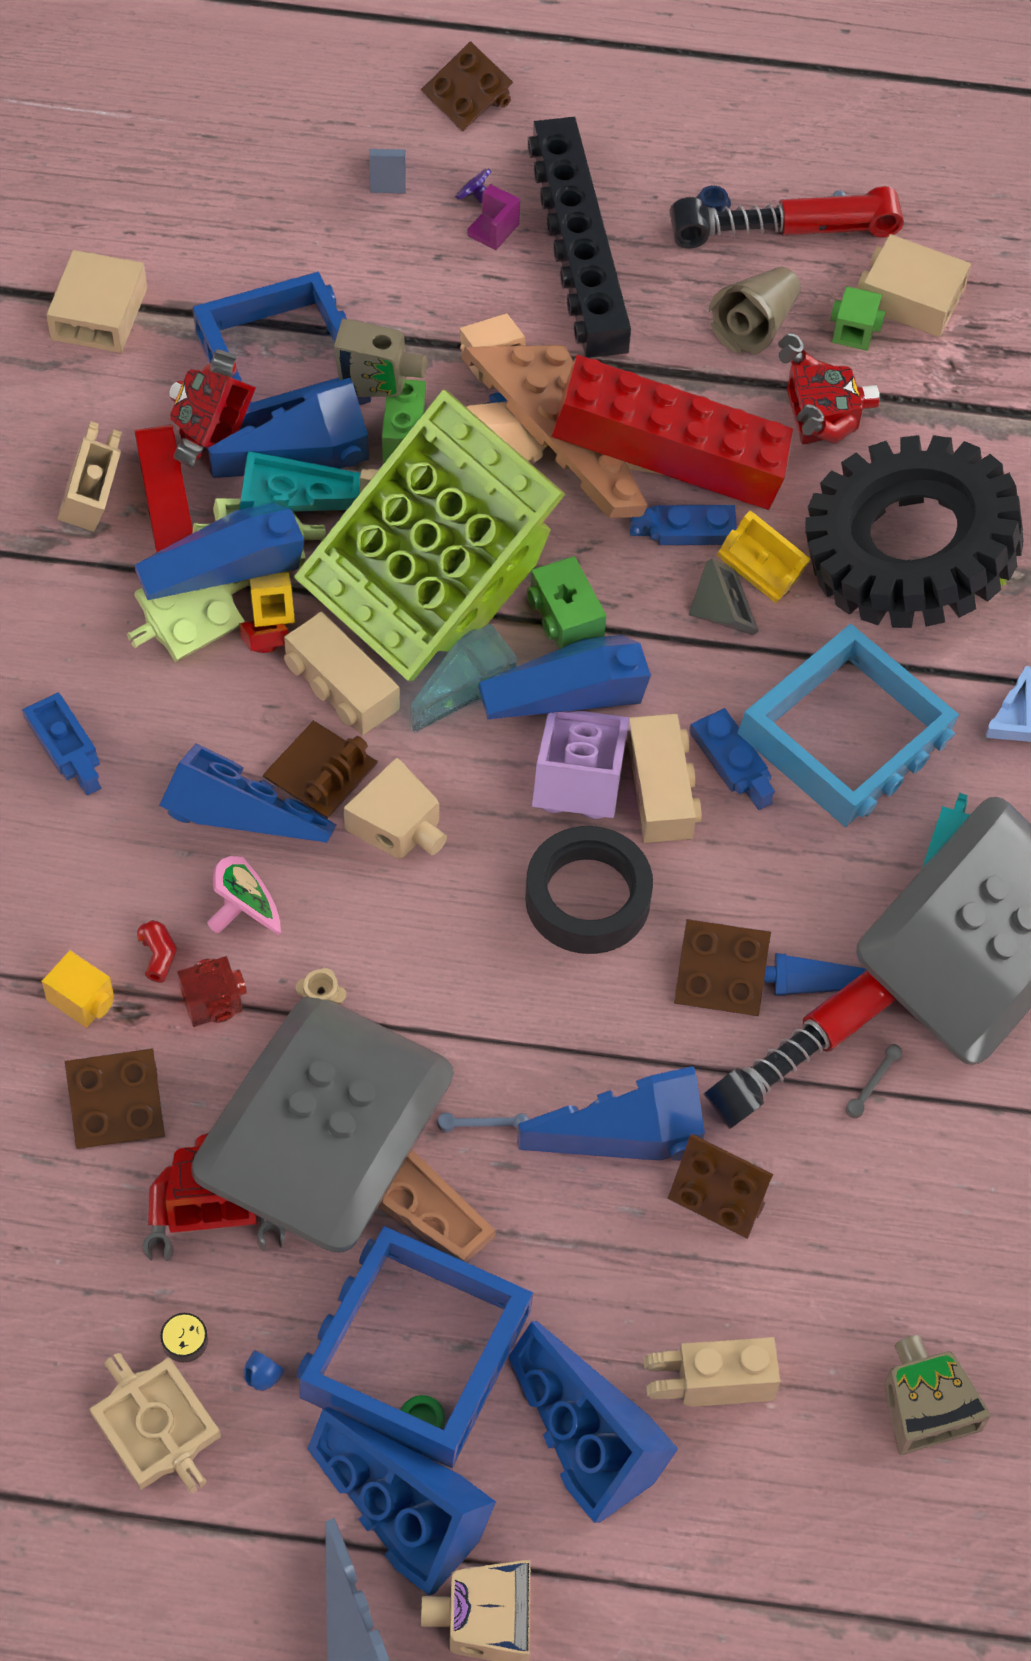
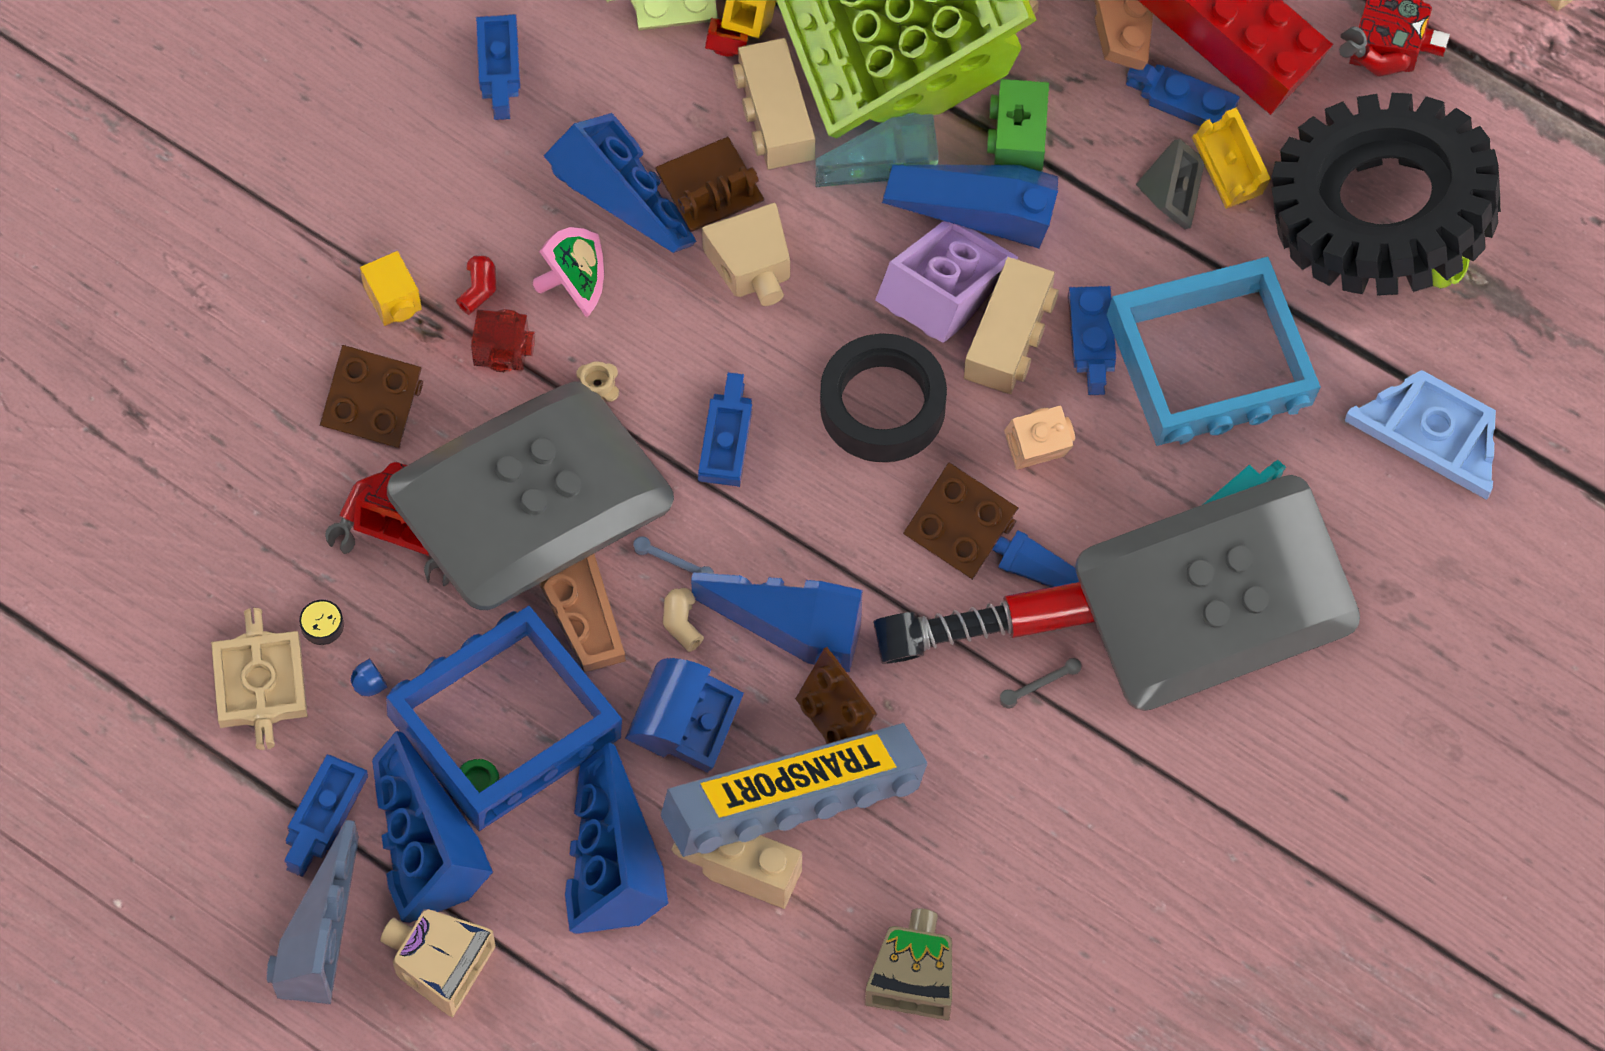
camera: 30 degrees right, 5 degrees up
(291, 1524) = (322, 812): none -> blue hinge
(468, 985) = (726, 435): none -> blue hinge
(519, 1173) = (676, 621): none -> tan arm
(581, 1259) = (684, 713): none -> blue brick
(733, 1285) = (793, 790): none -> sand blue brick
(748, 862) = (1039, 437): none -> light nougat head

